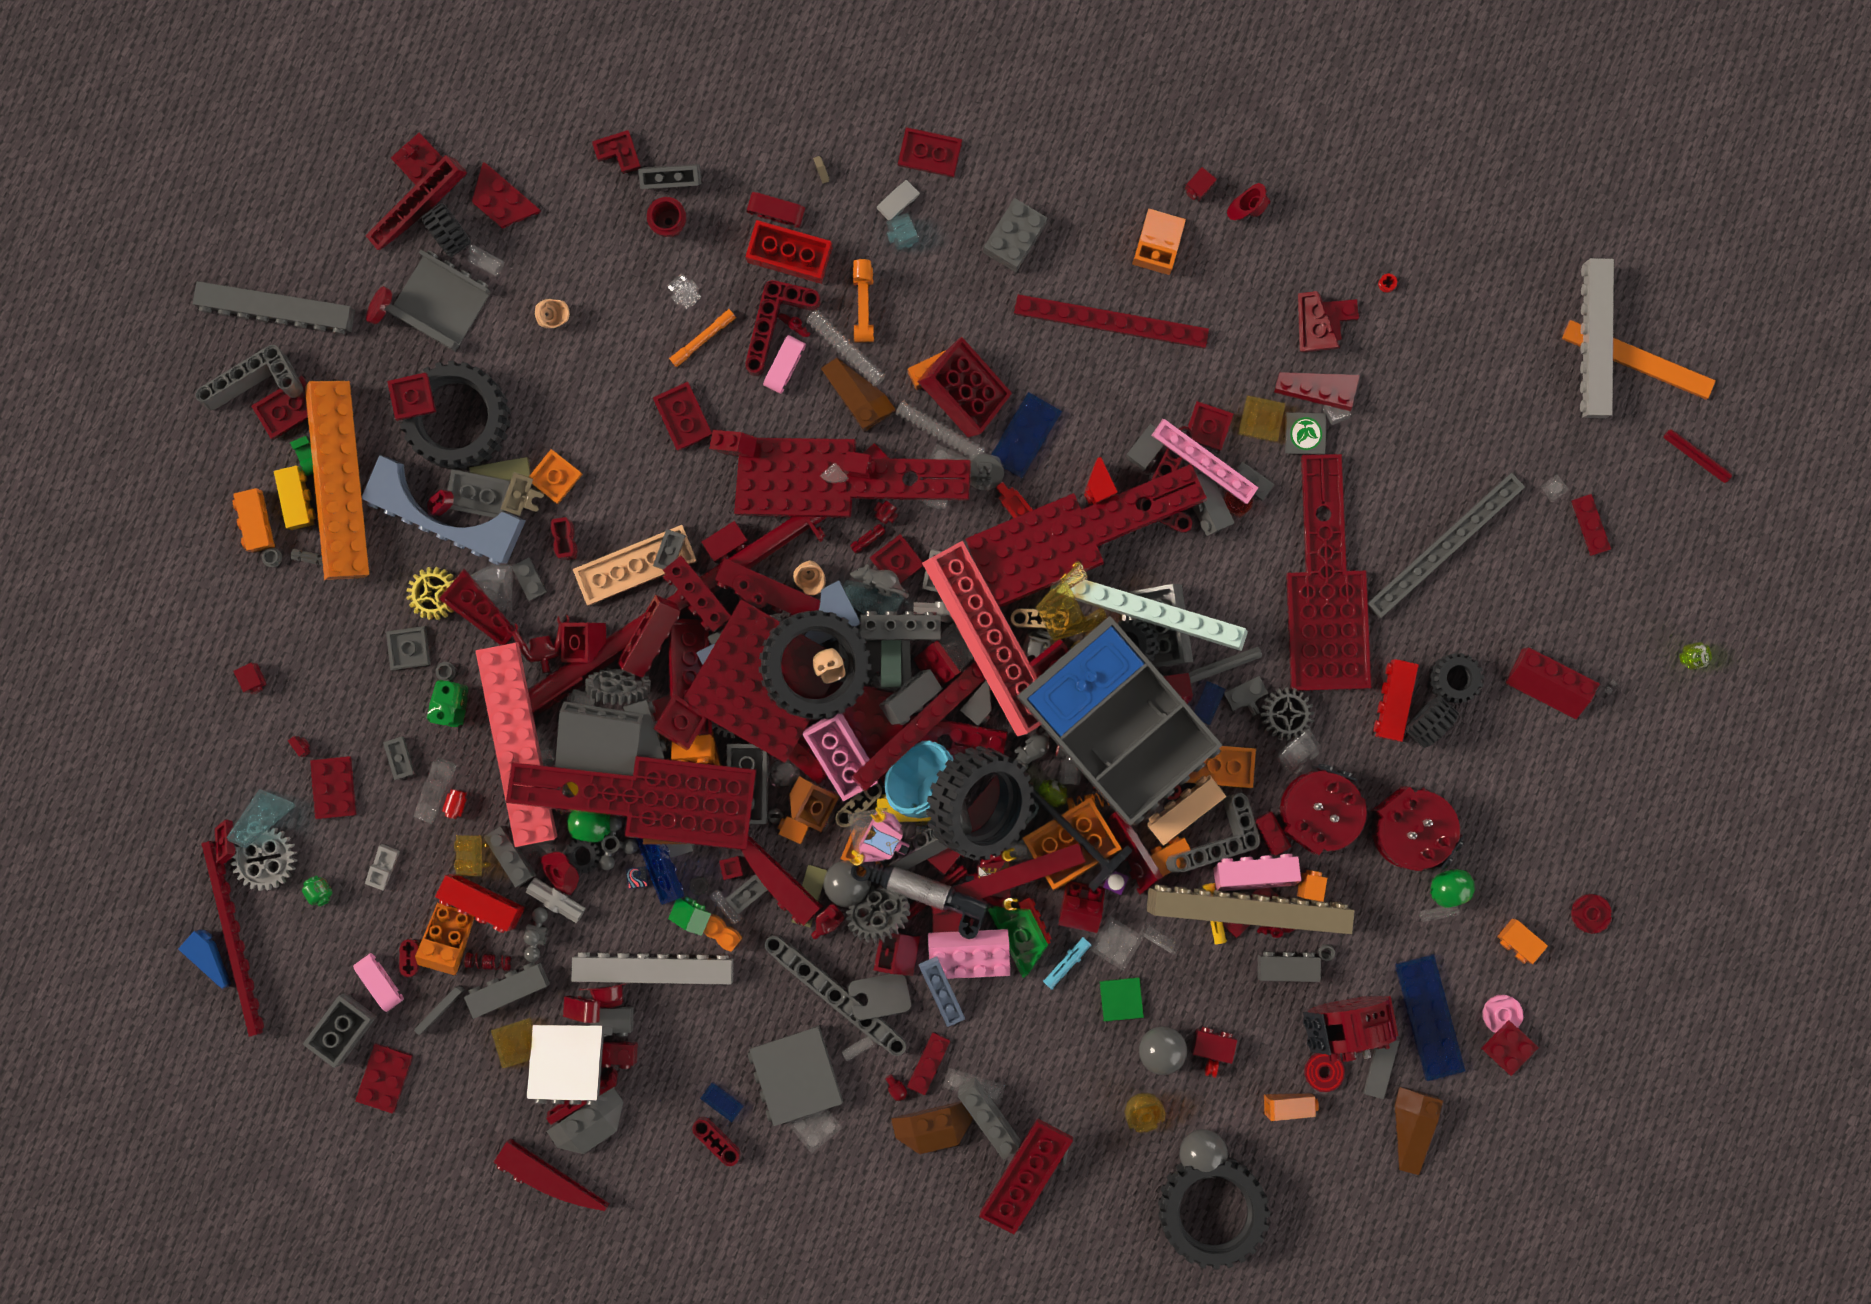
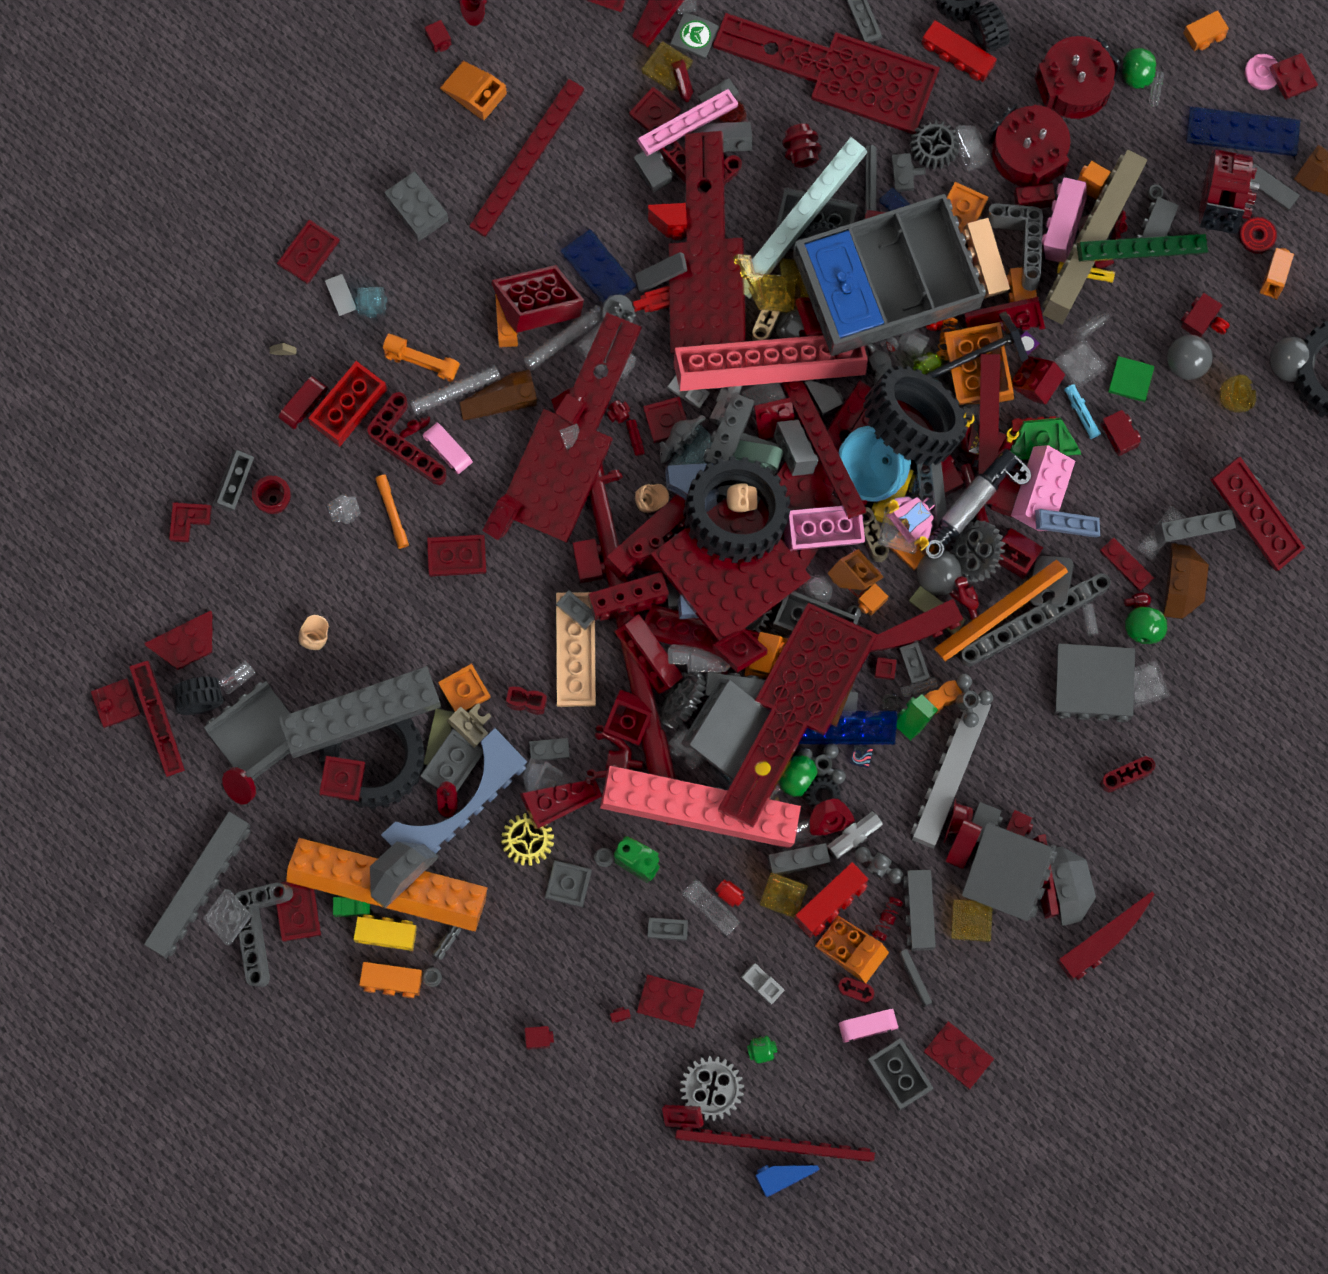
camera: 75 degrees left, 10 degrees down
(251, 346) = (227, 917): none -> clear plate
(258, 817) = (673, 1075): clear light blue wing -> none
(346, 484) = (398, 870): none -> dark grey wedge
(479, 386) = (359, 712): none -> dark grey brick
(659, 683) = (696, 659): none -> clear slope
(722, 1102) = (1094, 758): clear blue tile -> none
(732, 975) = (984, 697): none -> dark grey piece
(807, 762) = (820, 561): dark red plate -> none
(829, 958) = (1000, 610): none -> orange tile
(870, 1106) = (1146, 625): none -> green piece
(1041, 497) = (661, 272): none -> dark grey tile
(1060, 1009) = (1120, 432): none -> dark red brick
(1229, 583) = (801, 145): none -> dark red piece
(1251, 440) = (682, 80): none -> dark red slope
(1255, 962) = (1142, 247): none -> dark green plate

